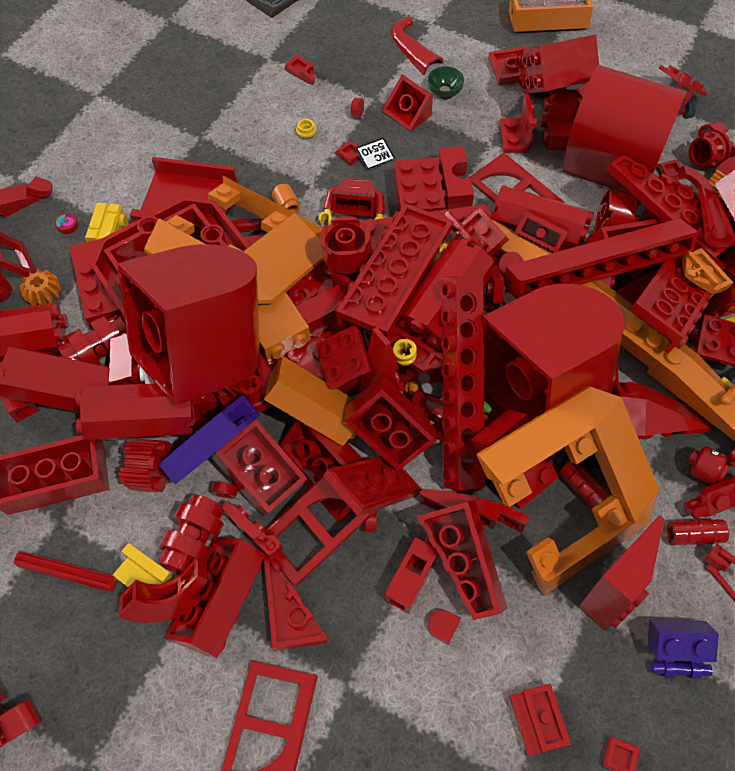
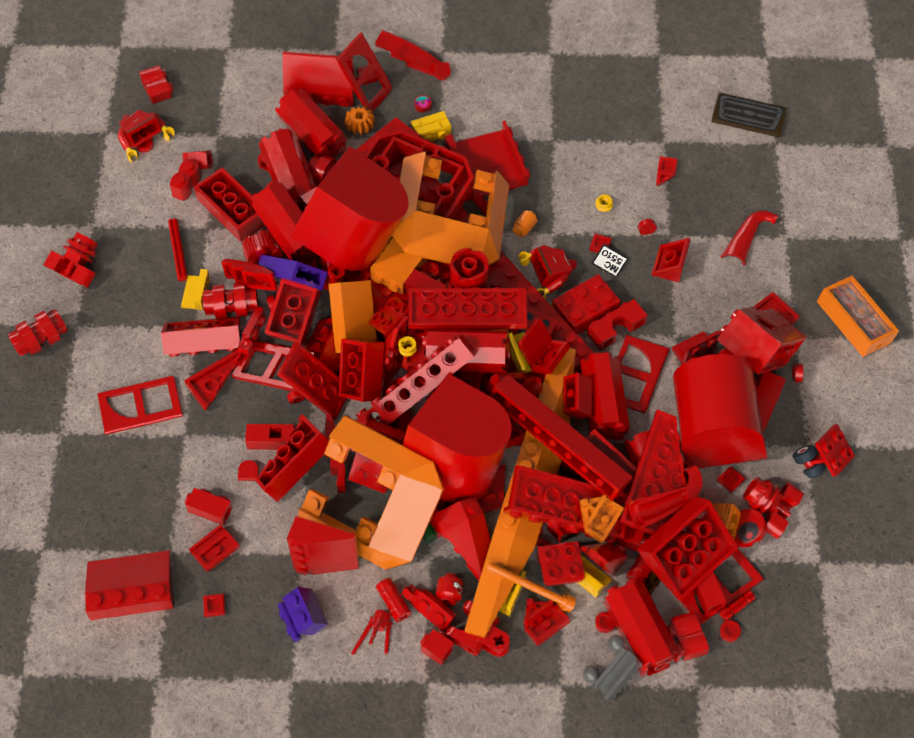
camera: 60 degrees right, 0 degrees up
(167, 600) = (182, 307): red arch -> none
(179, 488) = (249, 273): none -> red slope
(447, 77) = (718, 268): dark green piece -> none
(475, 699) = (208, 506): none -> red brick

